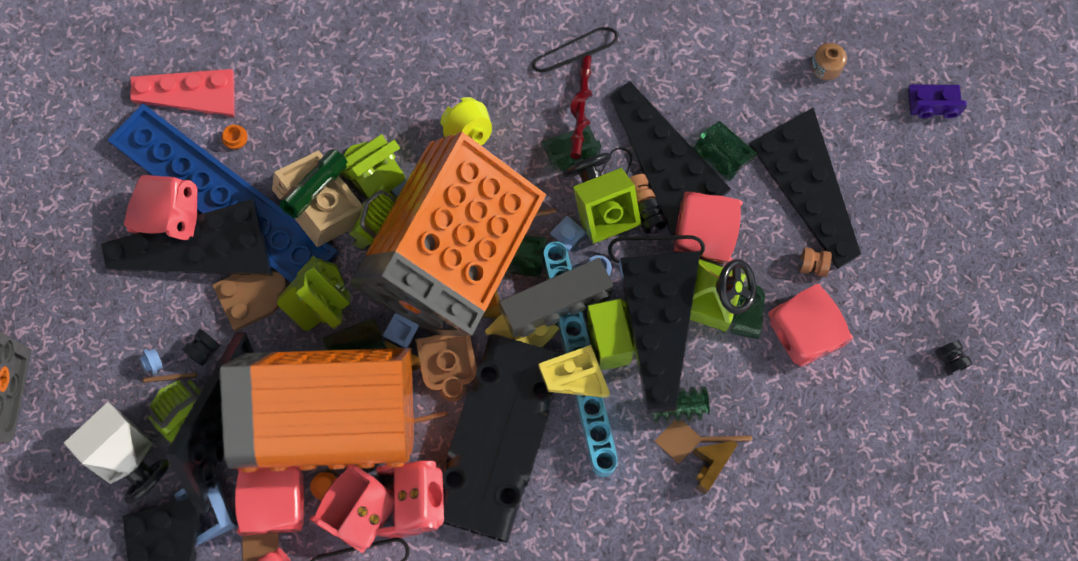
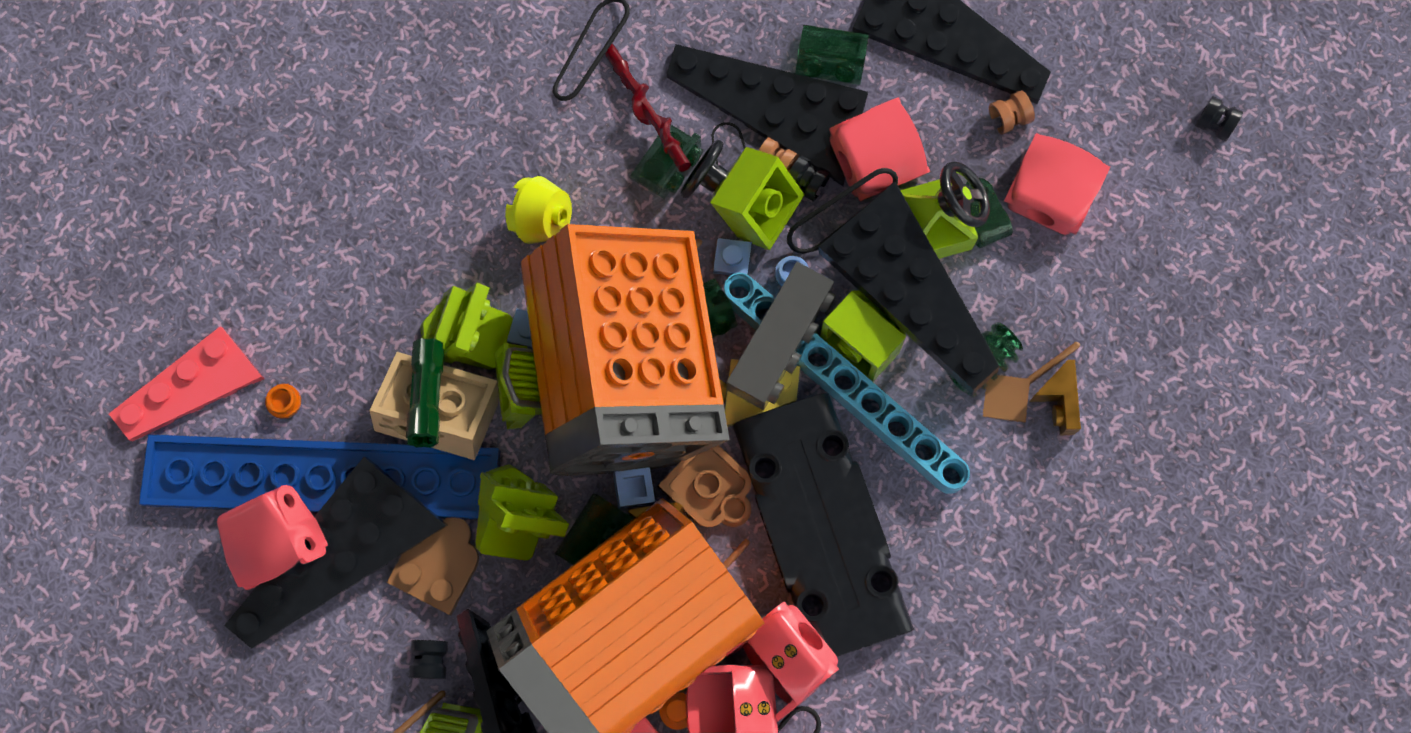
camera: 30 degrees left, 5 degrees up
(151, 361) = (384, 714): light blue plate -> none
(575, 374) = (859, 404): light yellow wing -> none

